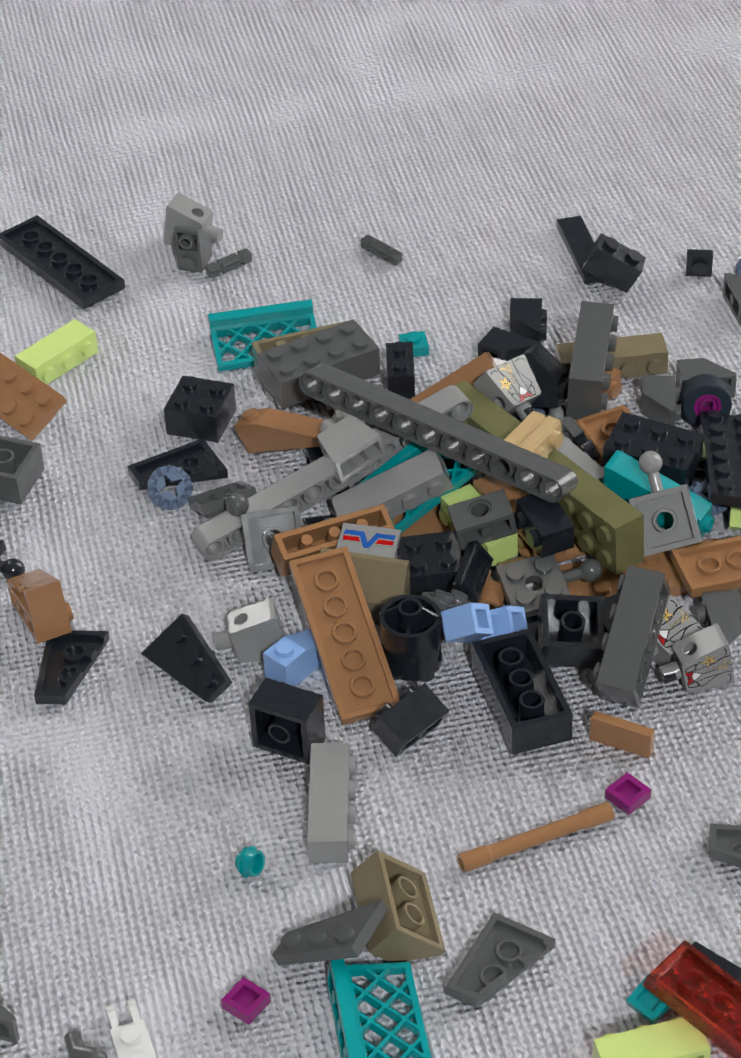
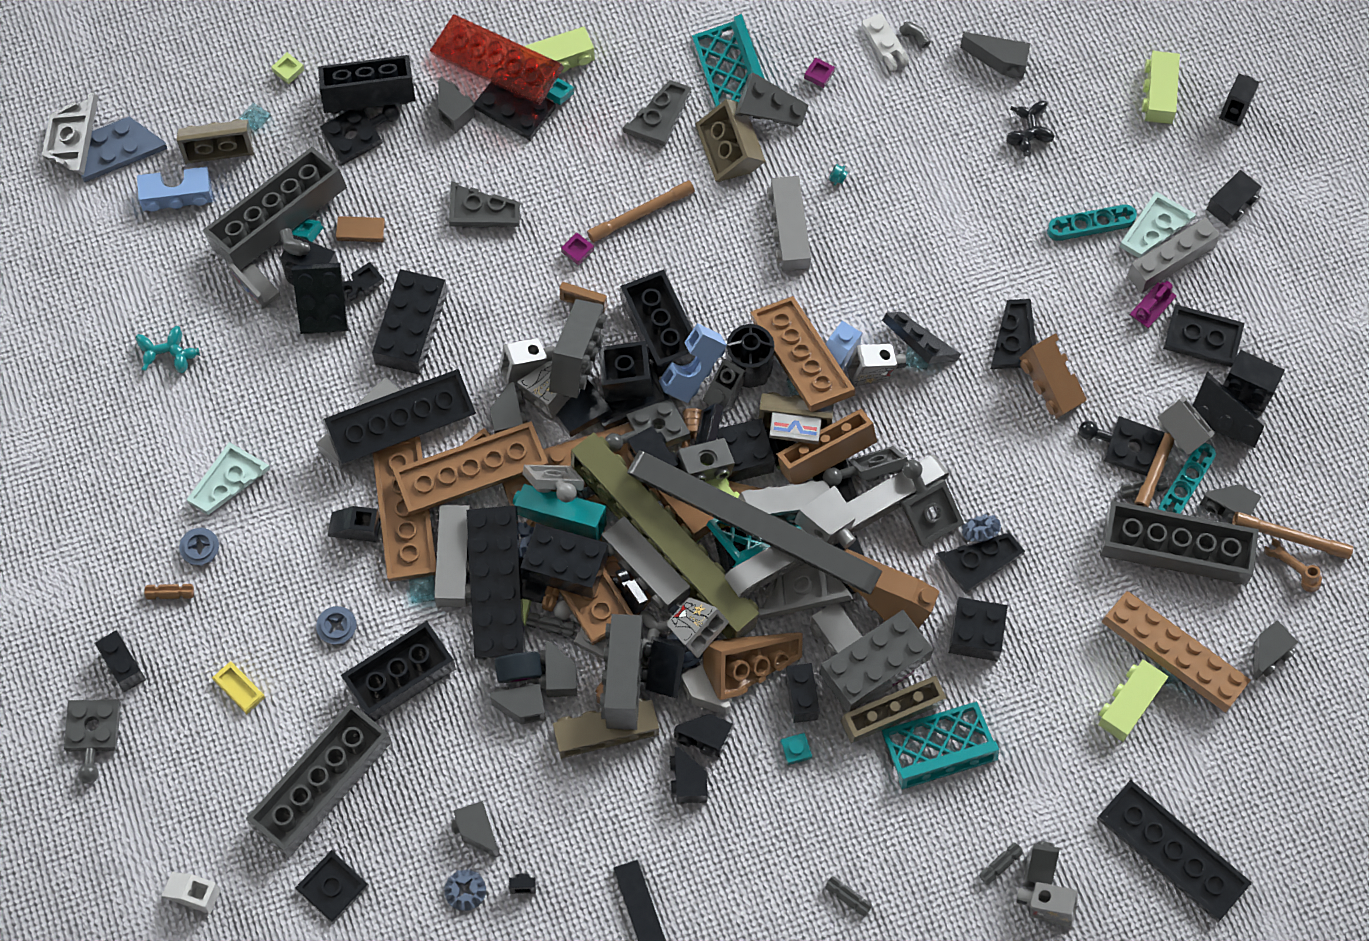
camera: 170 degrees right, 25 degrees up
(286, 720) = (831, 276): black brick -> none
(409, 719) = (741, 293): black brick -> none
(537, 434) = (668, 523): tan brick -> none
(614, 262) = (608, 859): black brick -> none

